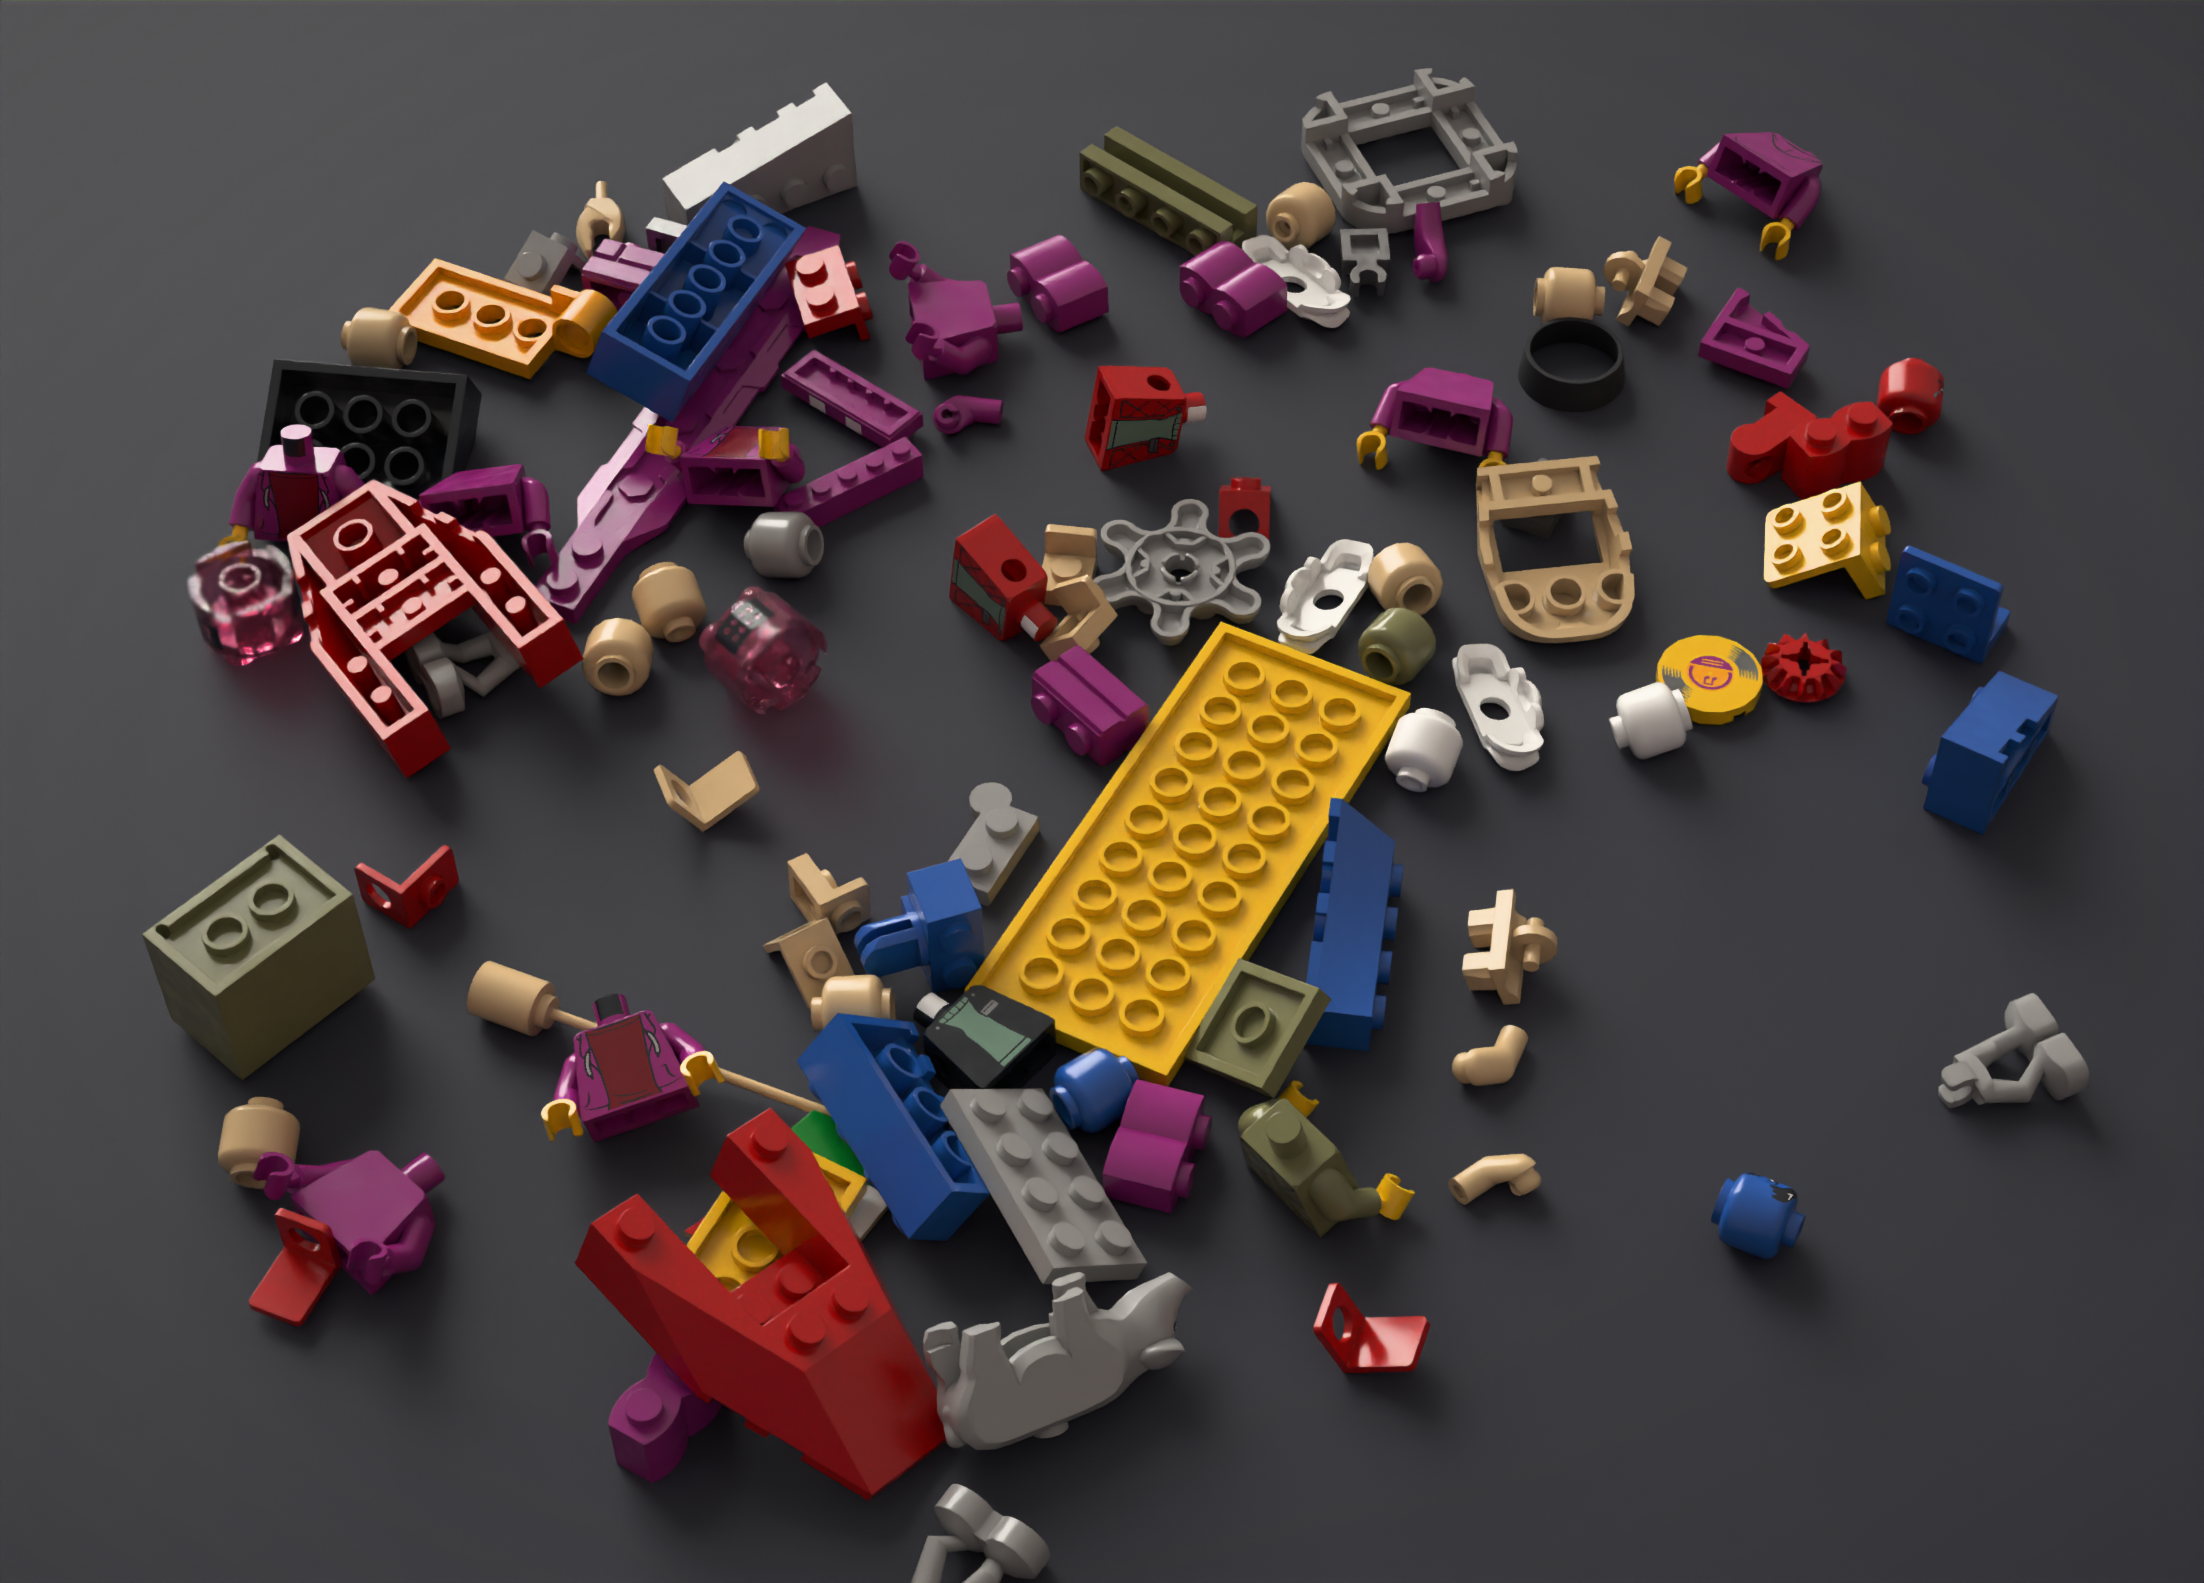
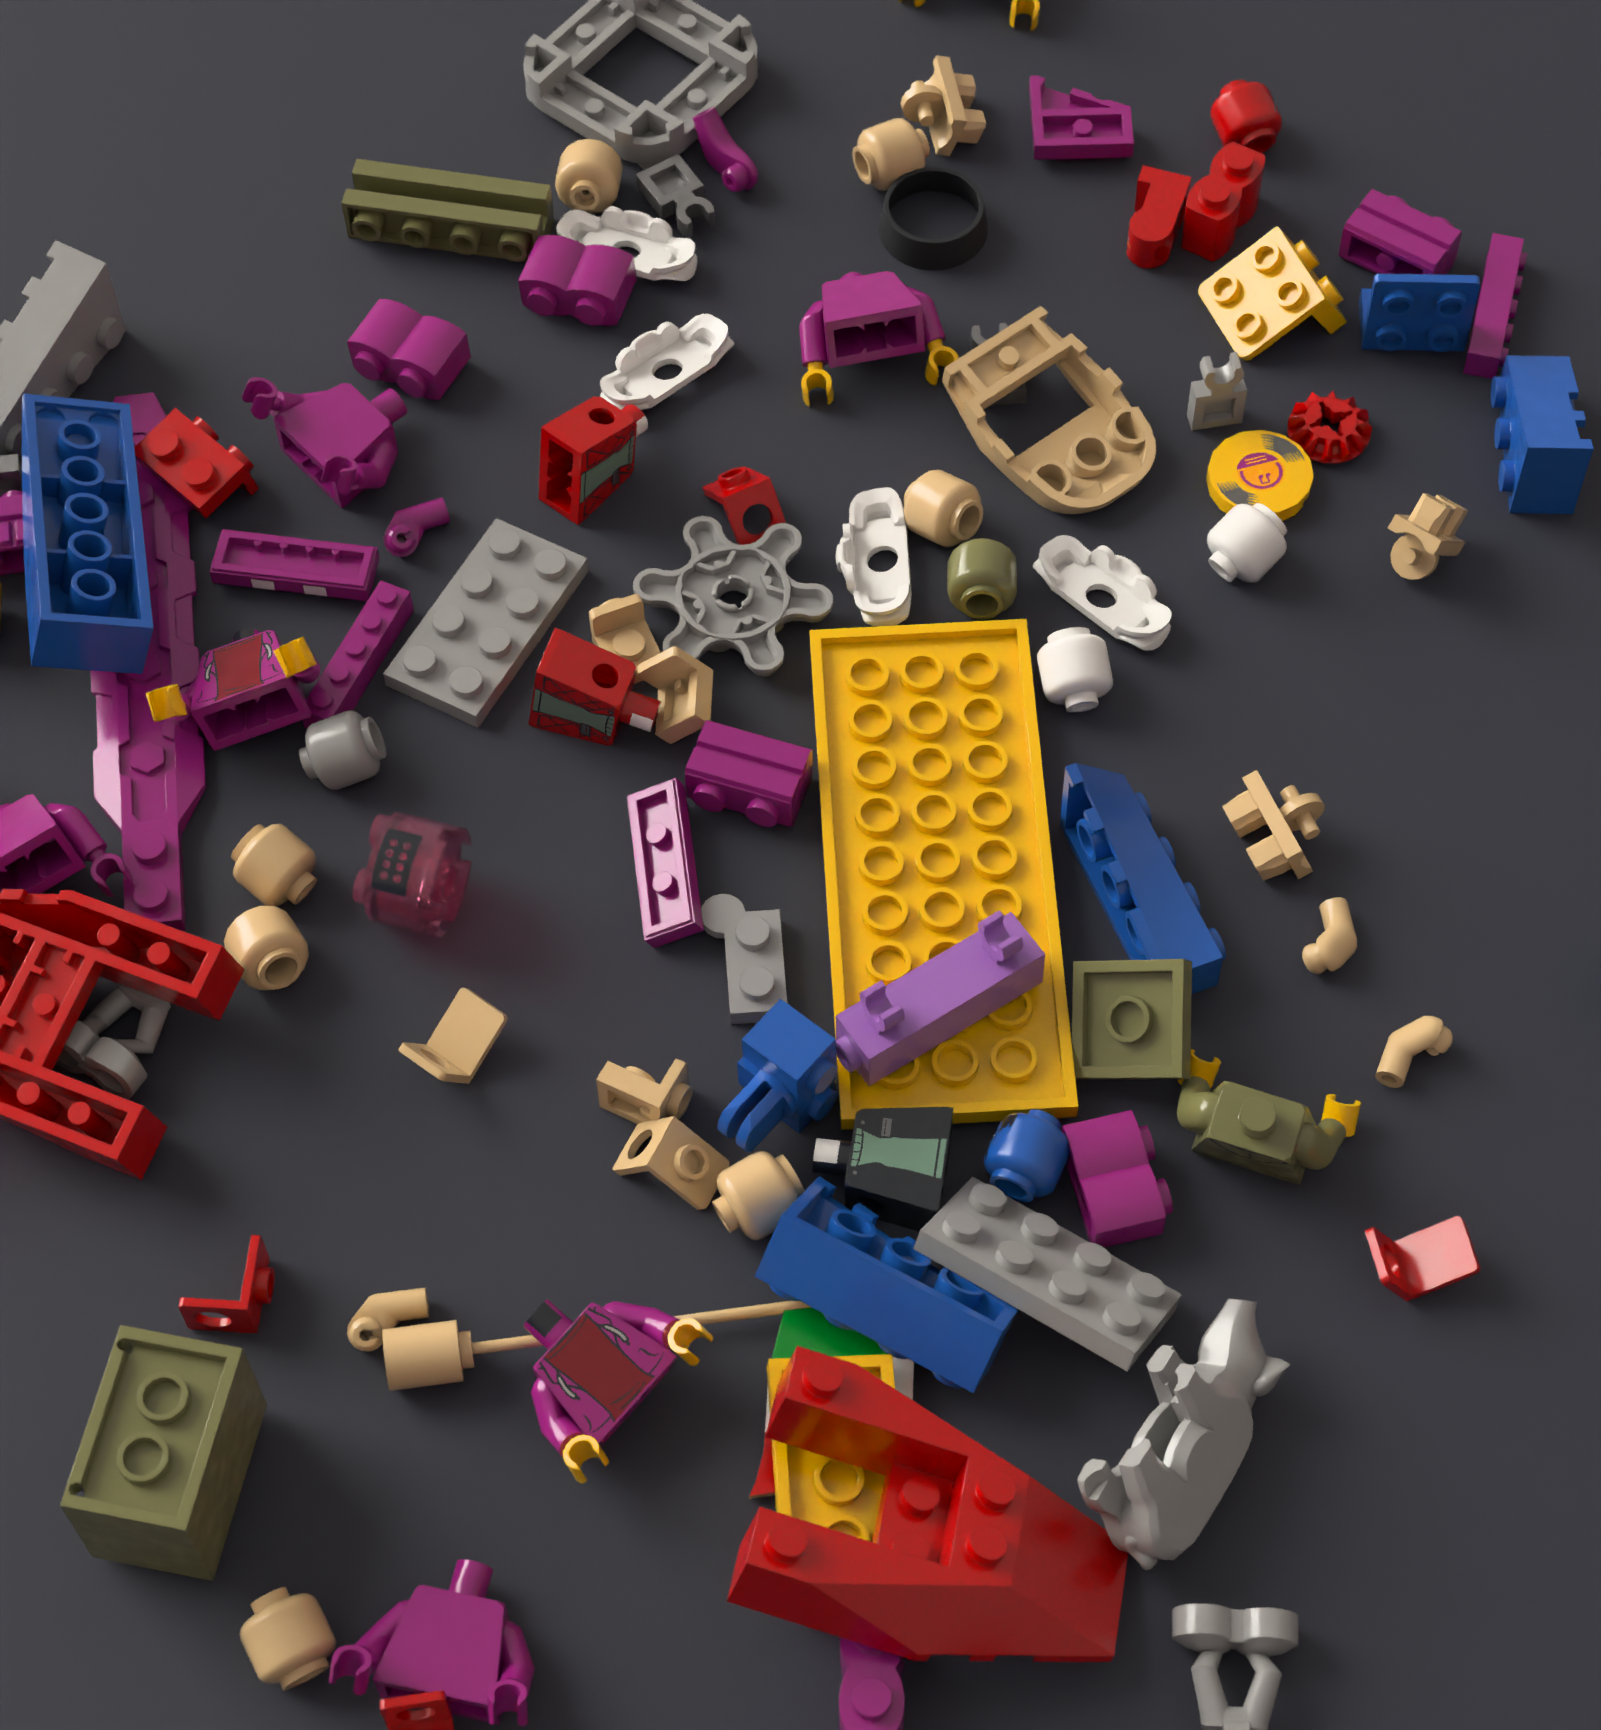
camera: 30 degrees left, 10 degrees up
(512, 955) = (385, 1312): none -> tan arm
(924, 519) = (486, 622): none -> light grey plate
(973, 741) = (665, 863): none -> tile
(1103, 931) = (938, 998): none -> medium lavender brick
(1288, 377) = (692, 347): none -> white piece
(1711, 595) = (1219, 396): none -> light grey plate
(1818, 779) = (1428, 535): none -> tan hips
(1979, 541) = (1397, 239): none -> magenta brick
(2035, 632) = (1495, 306): none -> magenta piece

